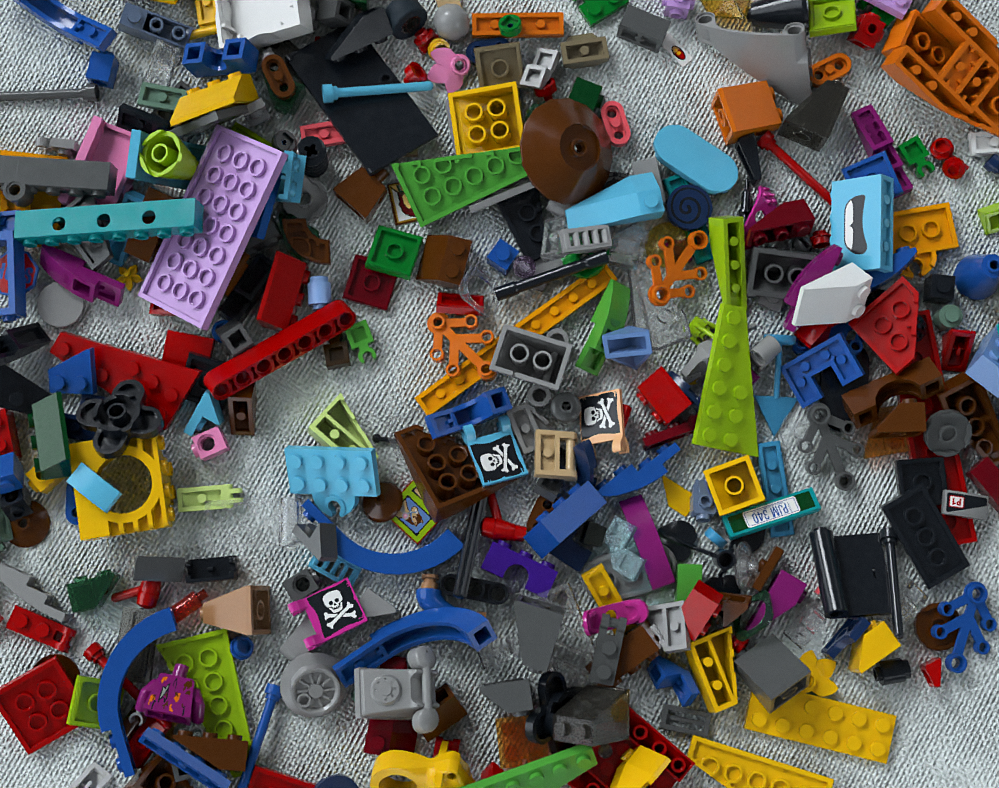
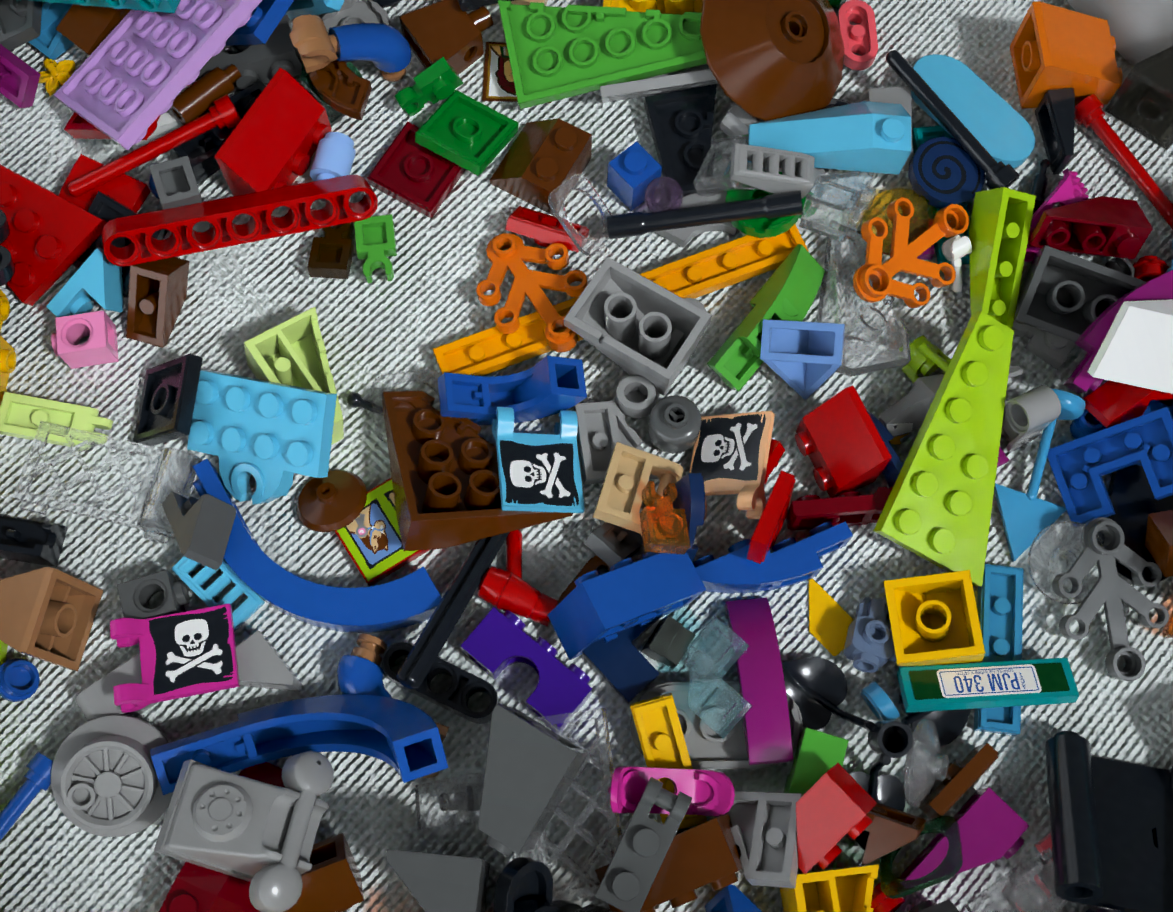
camera: 15 degrees right, 10 degrees down
(247, 285) = (220, 115): none -> red piece
(272, 470) = (168, 401): none -> black tile
(322, 214) = (351, 42): none -> piece
(367, 226) = (431, 85): none -> green plate
(574, 472) = (661, 524): none -> clear orange plate
(634, 452) = (772, 518): none -> red tile
(703, 257) = (954, 250): none -> white hand
(718, 202) = (997, 174): none -> black piece

